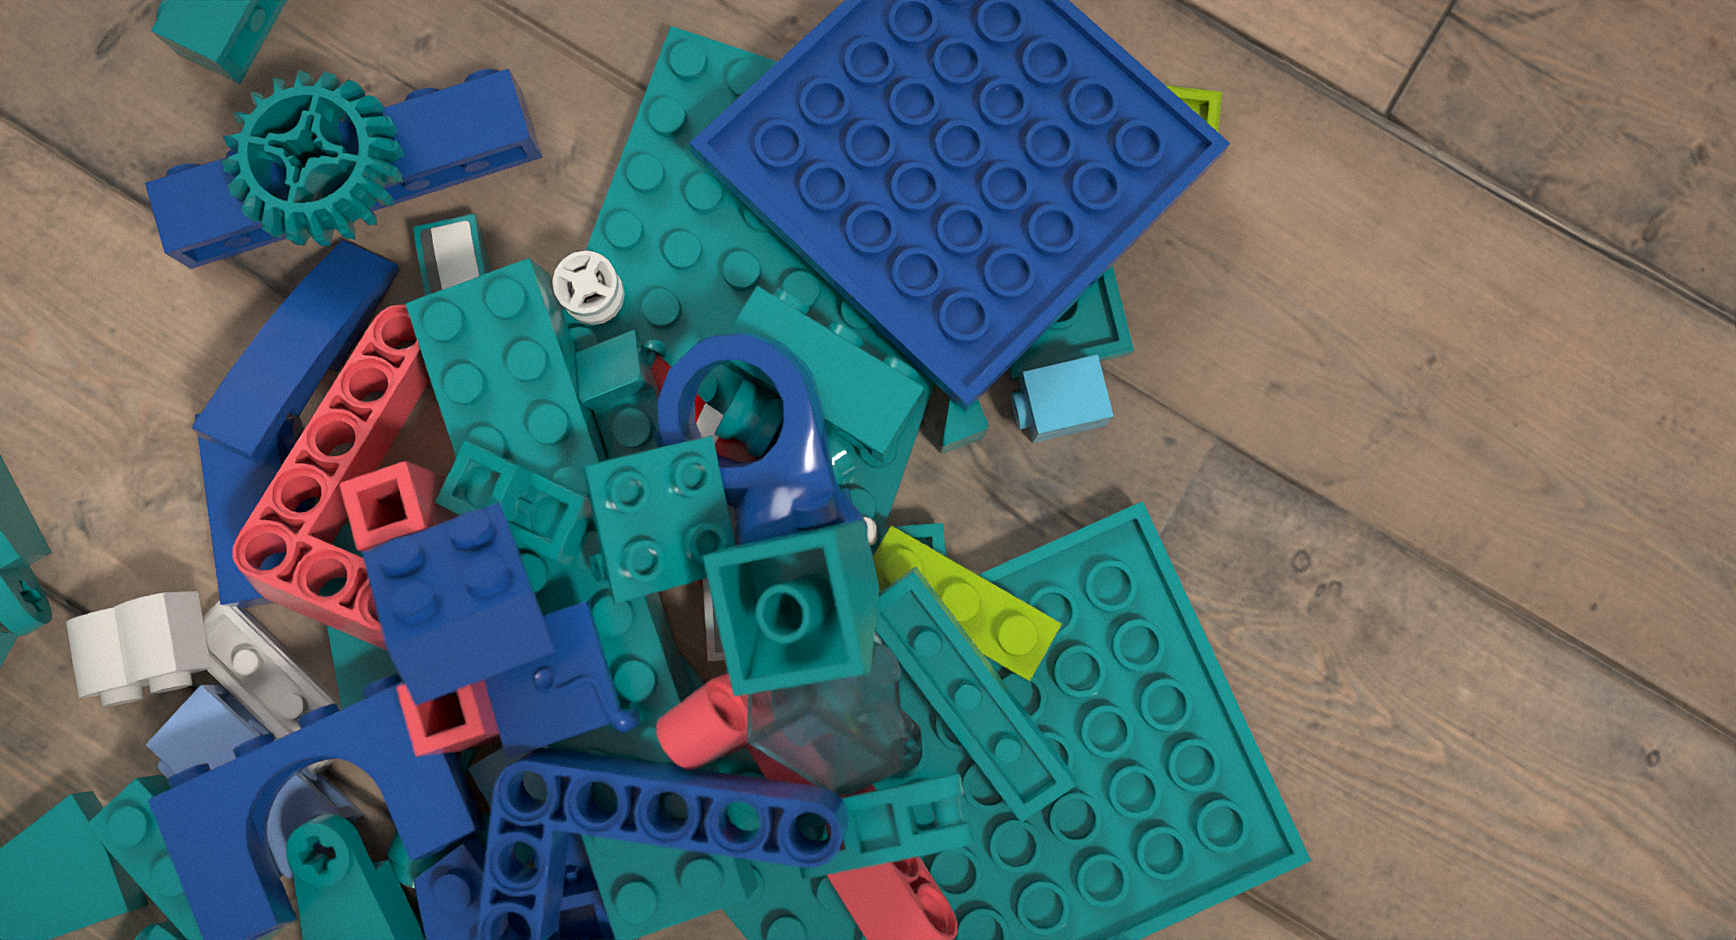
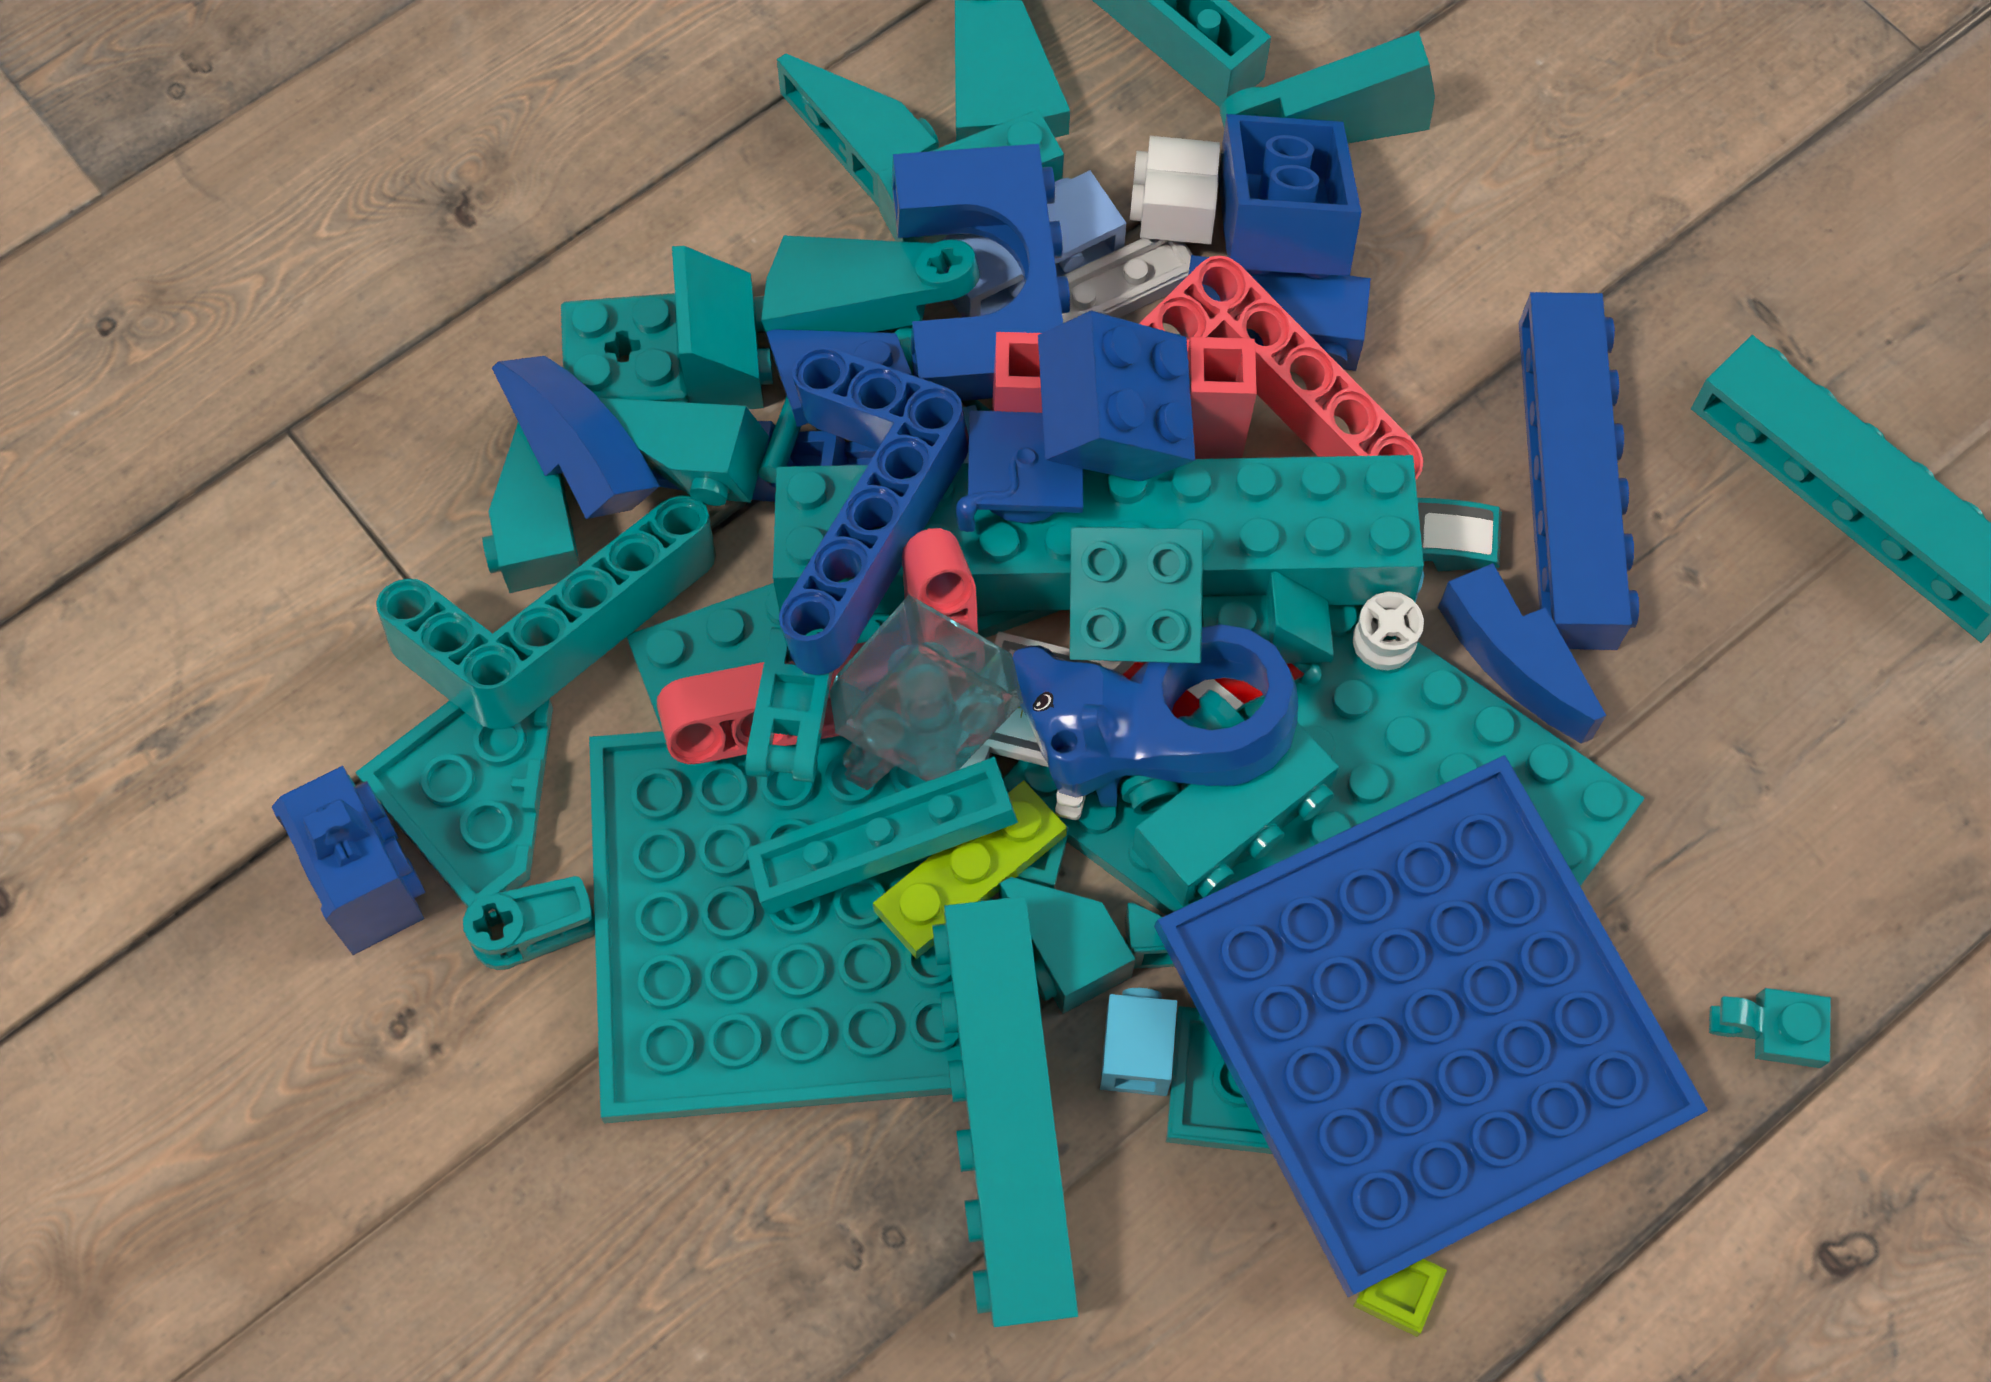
camera: 105 degrees right, 15 degrees down
(120, 523) = (1288, 195): none -> blue brick
(295, 350) = (1408, 375): blue slope -> none
(297, 128) = (1612, 449): teal gear -> none
(536, 508) = (1199, 489): teal slope -> none
(562, 167) = (1521, 653): none -> blue slope
(796, 607) = (1016, 669): teal slope -> none
(992, 489) = (1073, 944): none -> teal slope
(1174, 489) = (1008, 1112): none -> teal brick

